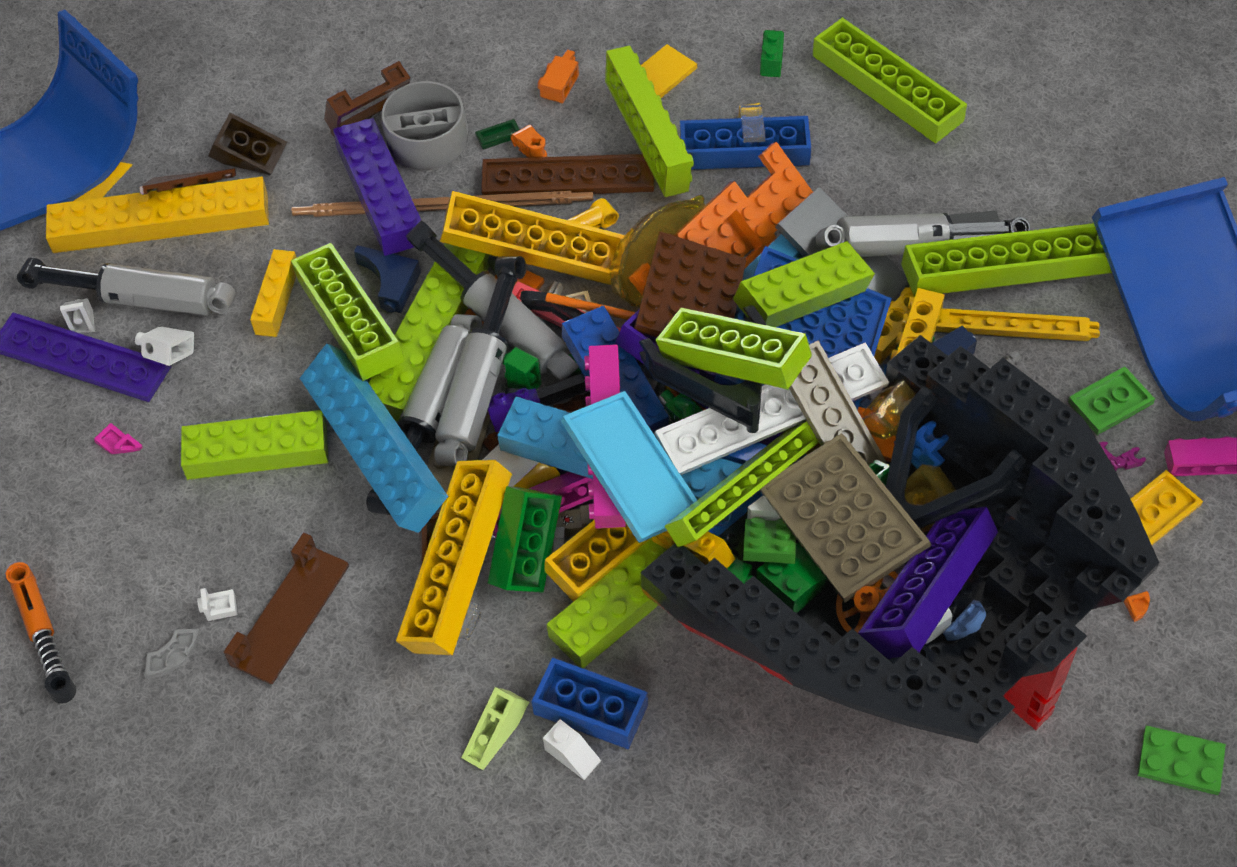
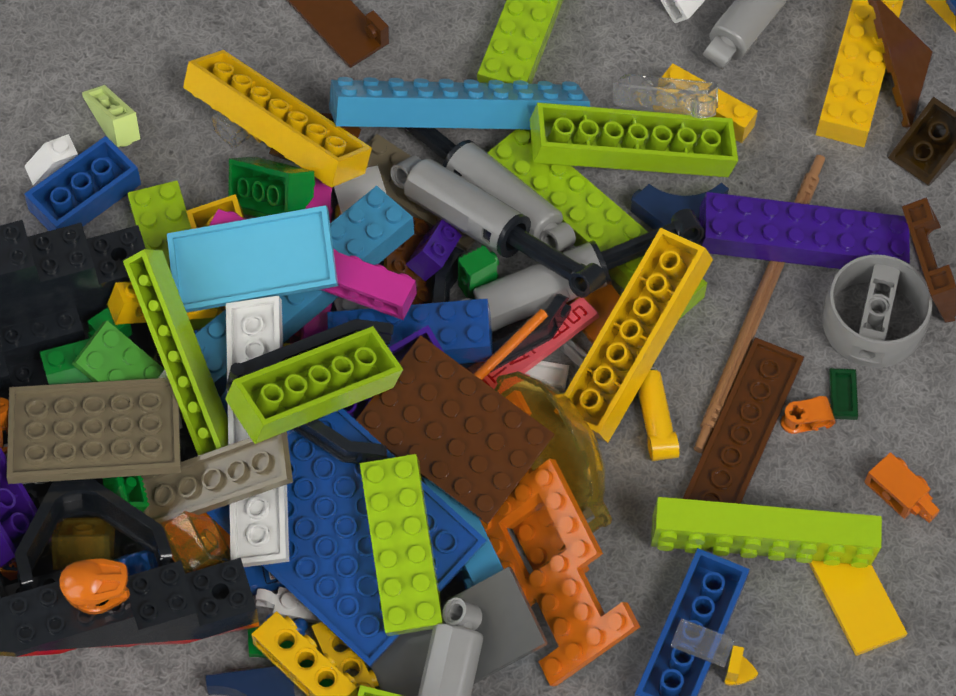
camera: 110 degrees right, 5 degrees up
(289, 304) = (666, 95): none -> clear hinge
(1007, 370) = (93, 582): none -> orange helmet

